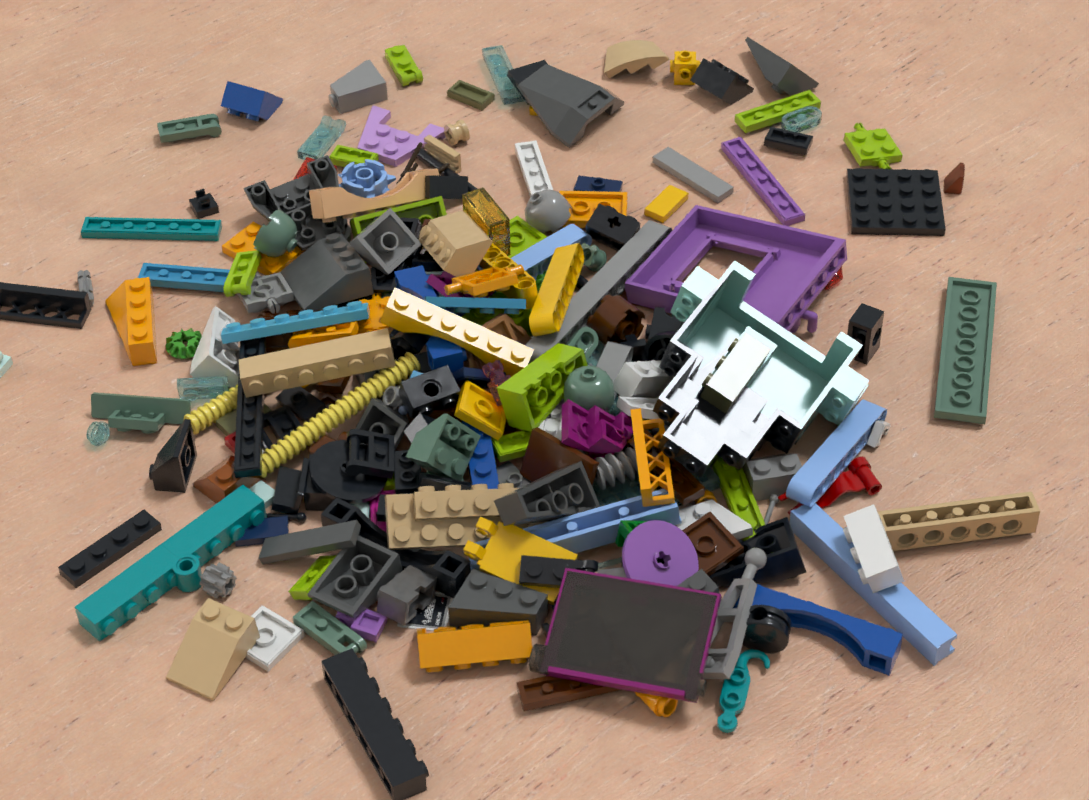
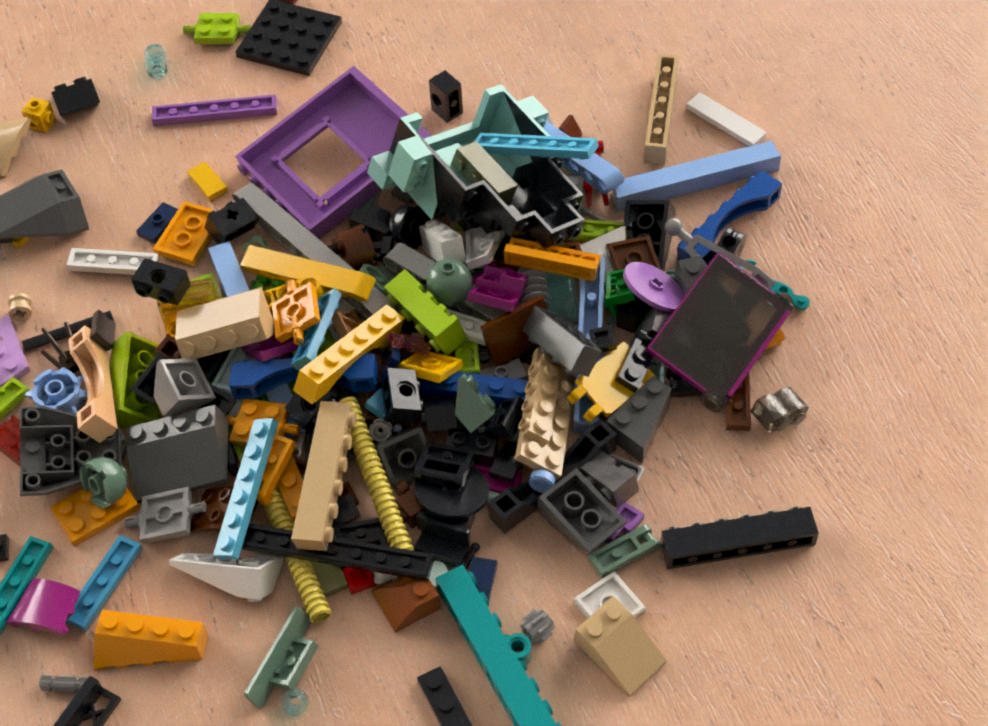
camera: 70 degrees left, 10 degrees up
(149, 249) = (45, 607): none -> magenta slope
(175, 461) = (375, 633): black slope -> none
(176, 347) = (205, 609): bright green gear -> none
(202, 387) = (274, 604): clear light blue plate -> none
(242, 273) = (135, 525): lime plate -> none
(310, 542) = (526, 538): dark grey tile -> none
(310, 577) = (559, 547): lime plate -> none
(378, 533) = (541, 480): none -> light blue tile
(443, 153) = (50, 321): tan tile -> none
(474, 645) = (676, 447): light orange wedge -> none
(481, 183) = (160, 282): none -> black brick
(547, 211) = (186, 257): light grey cylinder -> none
(554, 726) = (780, 409): none -> clear smoke brick
(565, 531) = (603, 338): none -> black plate
(693, 174) = (179, 153): light grey tile -> none
(774, 111) = (135, 73): lime plate -> none
(779, 71) = (92, 52): dark grey wedge -> none
(786, 395) = (538, 145): none -> medium azure plate
(788, 140) = (177, 77): black plate -> none
(872, 549) = (686, 156): white brick -> none
(881, 454) = (571, 127): none -> copper slope
(966, 351) = (480, 48): sand green plate -> none
(983, 595) = (726, 120): none -> white tile

